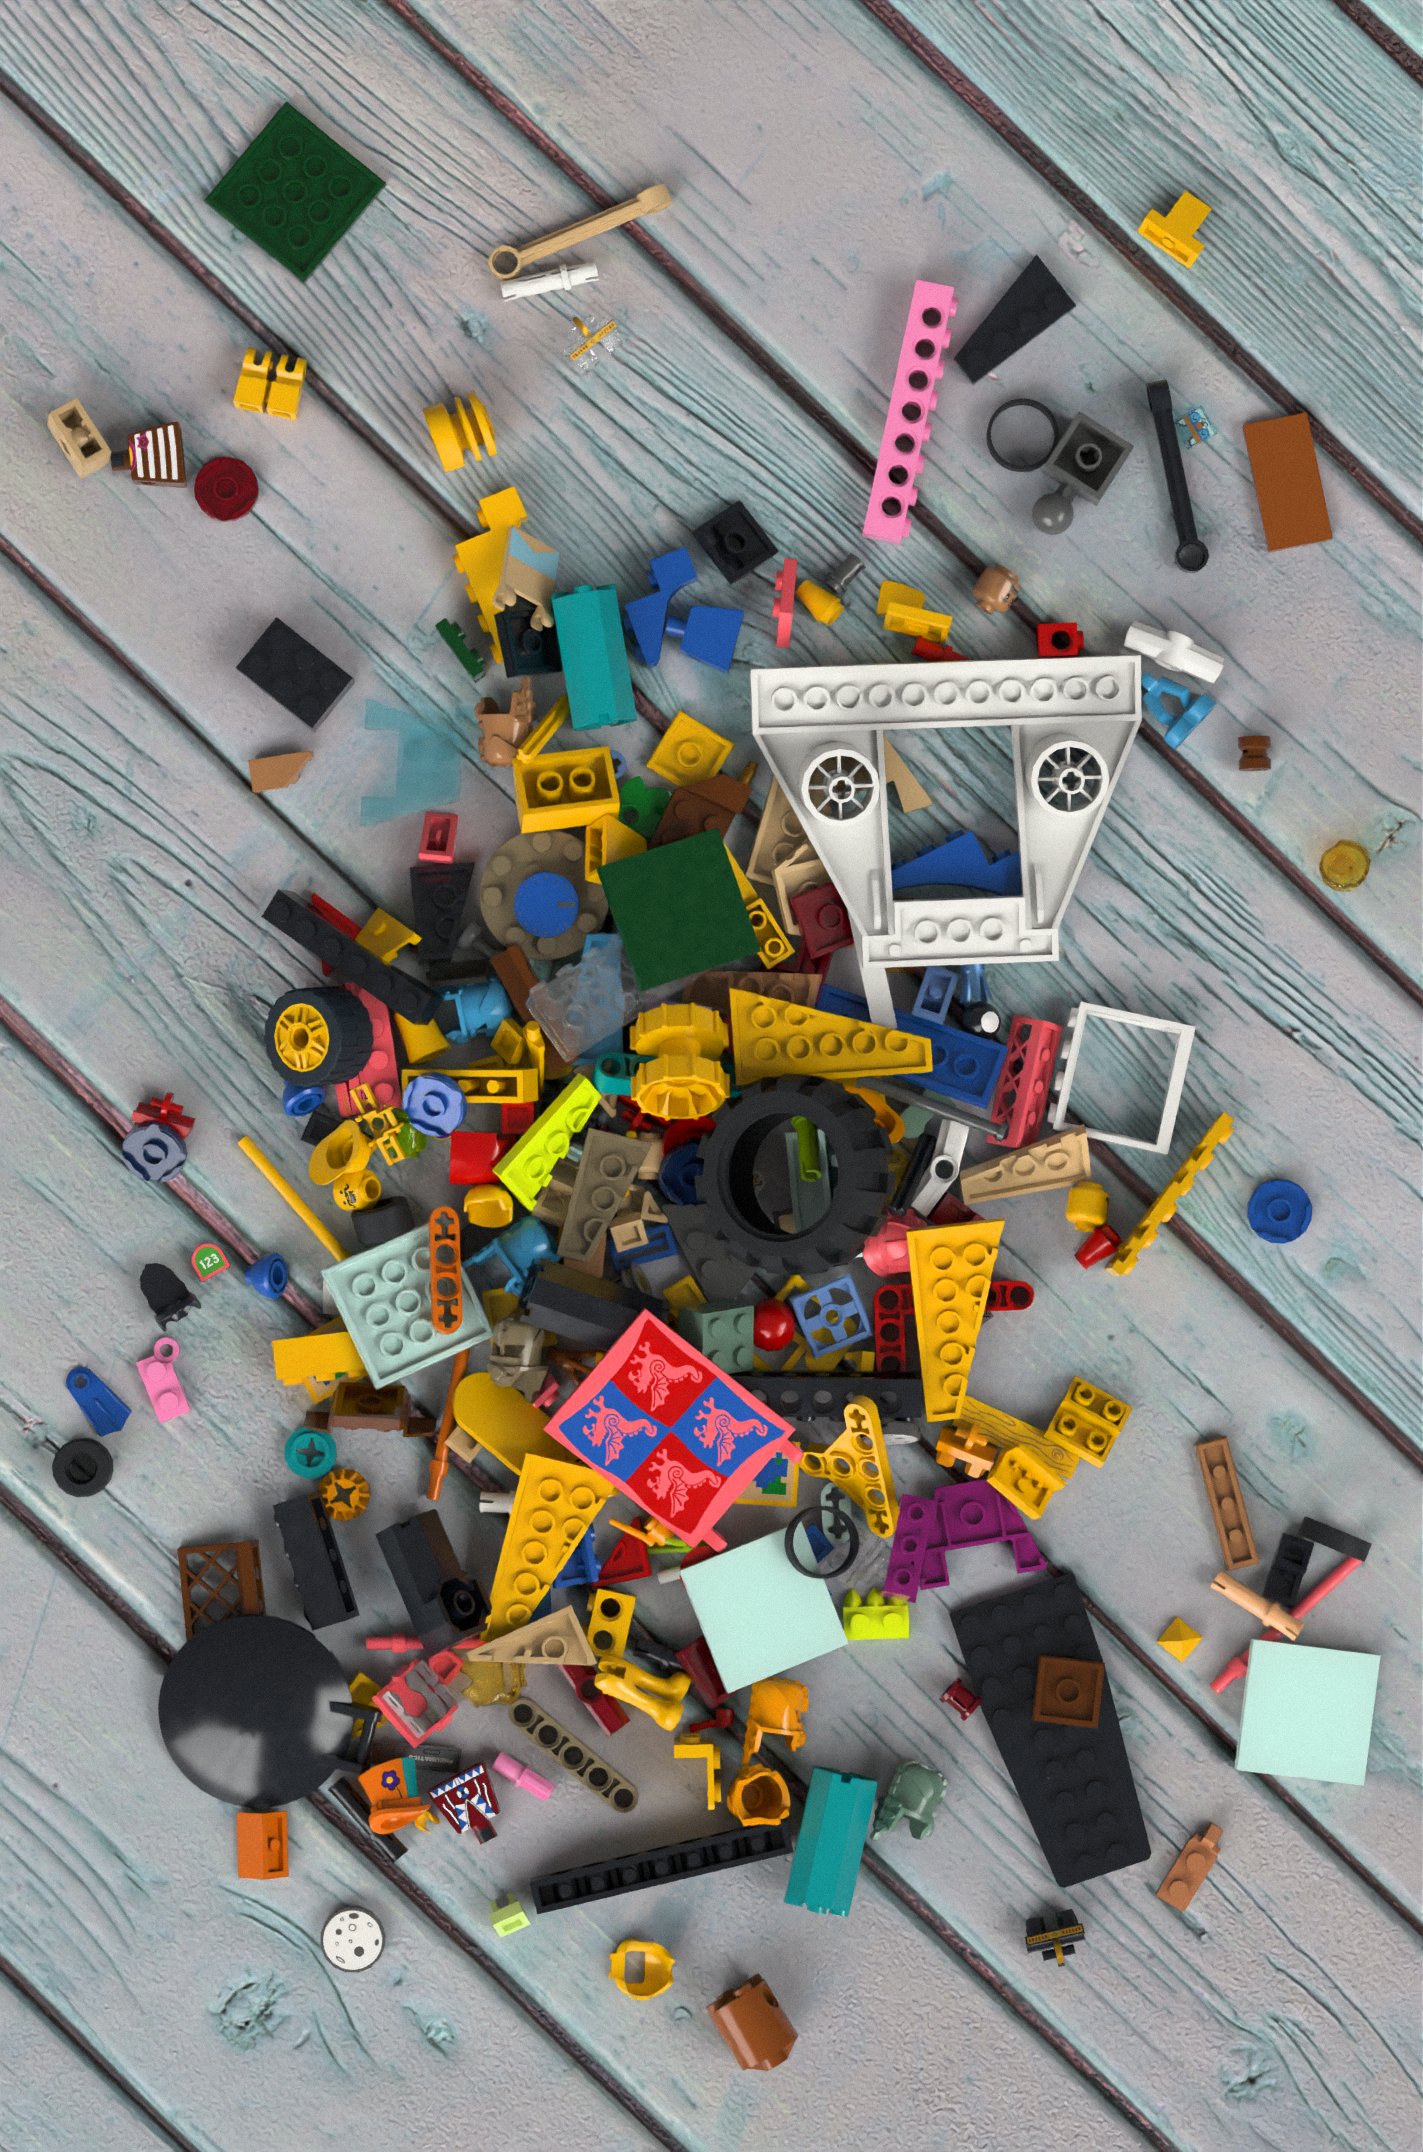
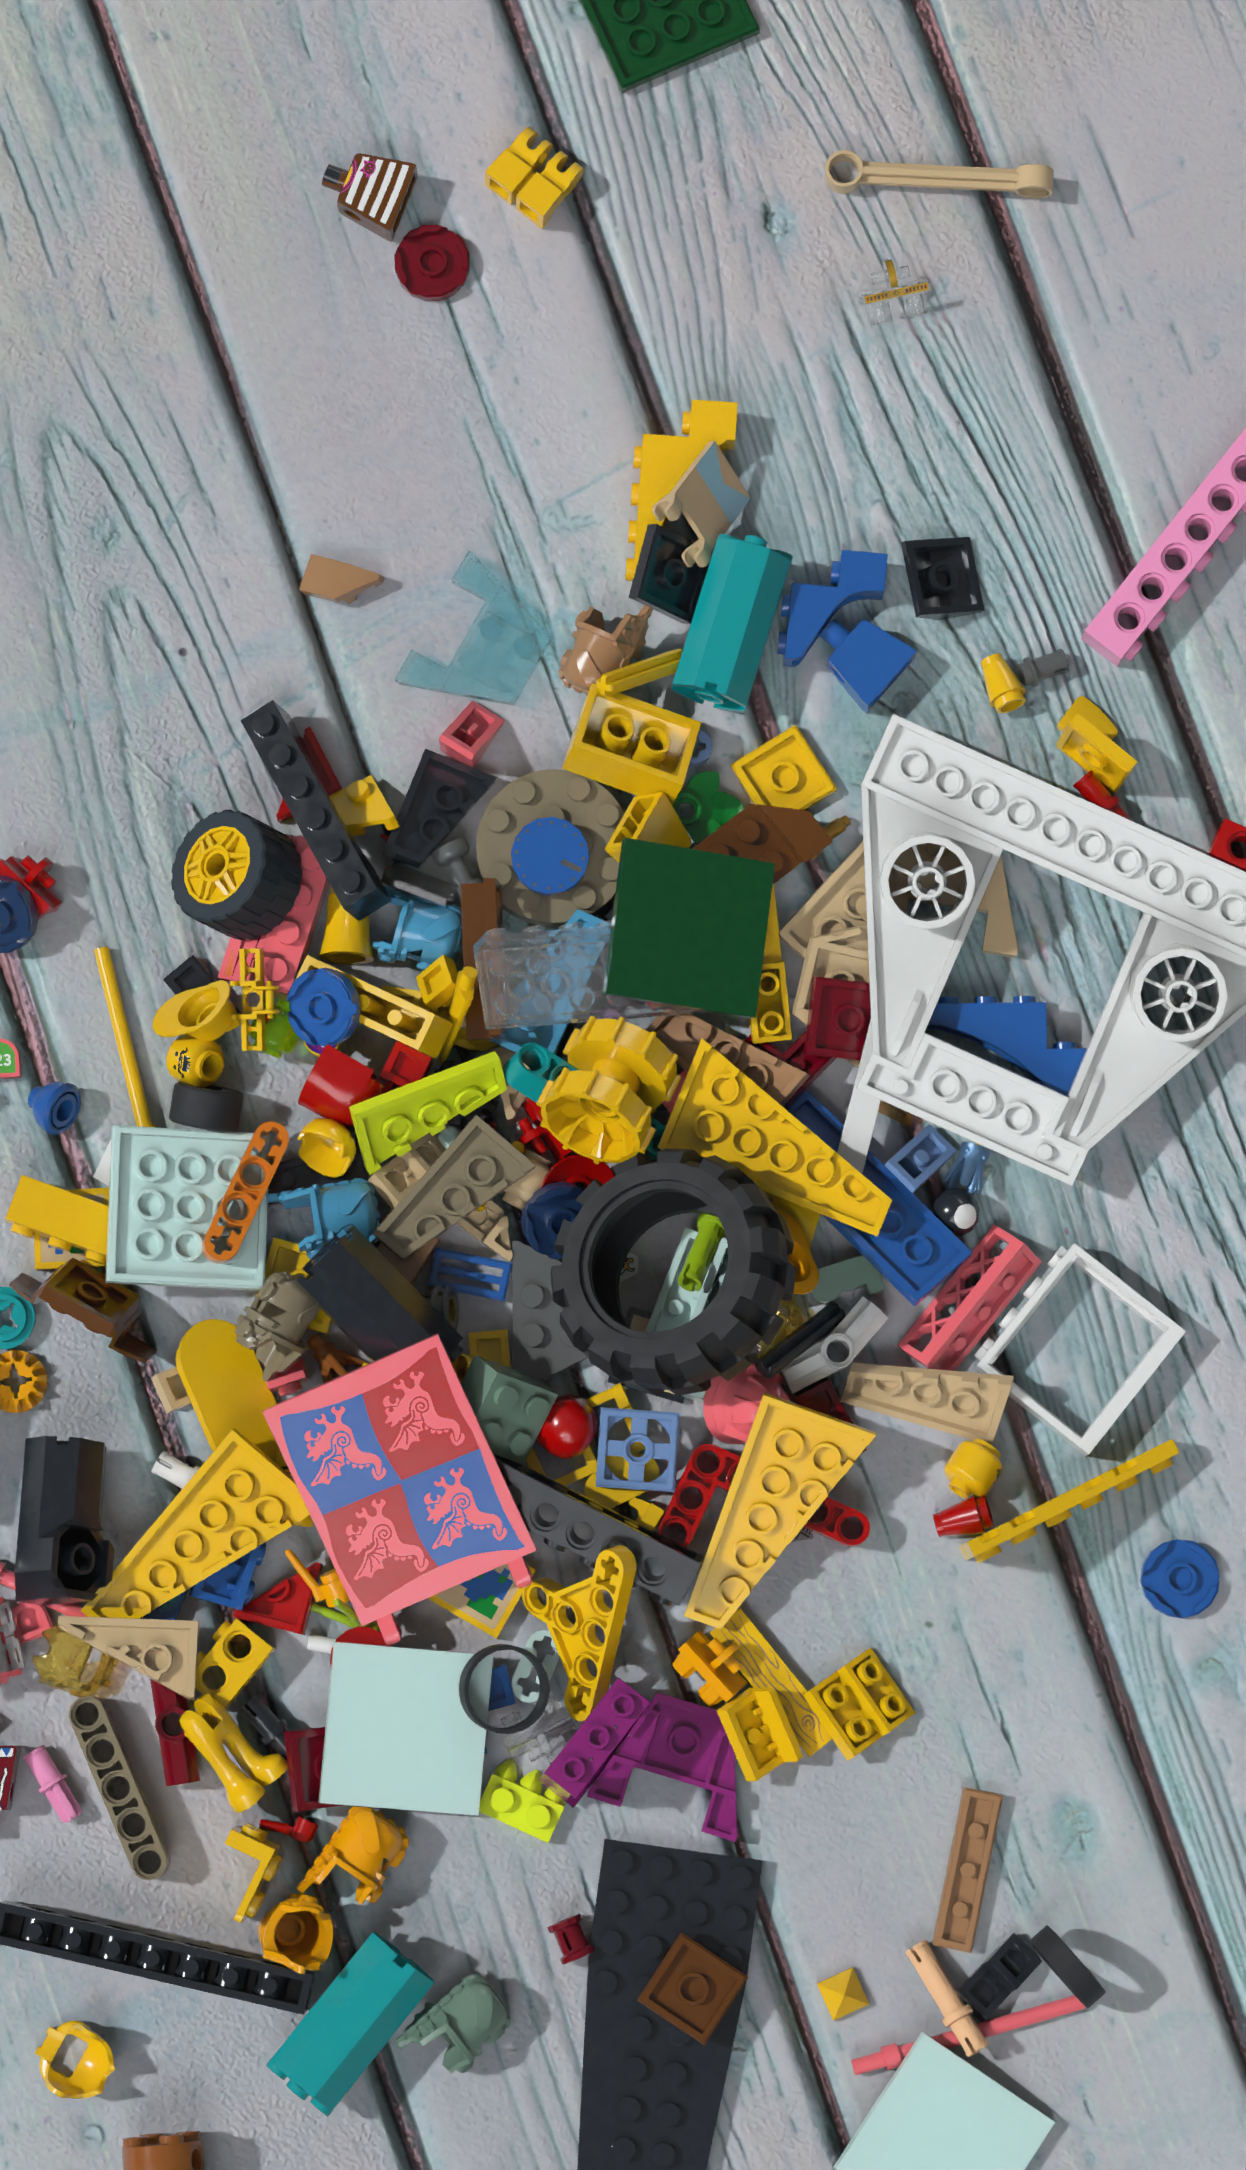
camera: 25 degrees right, 5 degrees down
(79, 438) = (303, 133): tan brick -> none
(295, 674) = (406, 488): black brick -> none
(302, 1100) = (187, 936): blue brick -> none
(439, 1466) = (133, 1402): orange bar -> none
(460, 431) = (708, 318): yellow wheel -> none
(470, 660) = (599, 561): dark green plate -> none
(550, 280) = (883, 212): white pin -> none
(628, 1230) = (463, 1248): tan tile -> none
(784, 606) = (962, 666): coral wing -> none
(897, 1433) = (645, 1611): dark grey tile -> none
(933, 1106) = (858, 1275): dark grey bar -> none
(996, 589) = (1197, 761): medium nougat head -> none

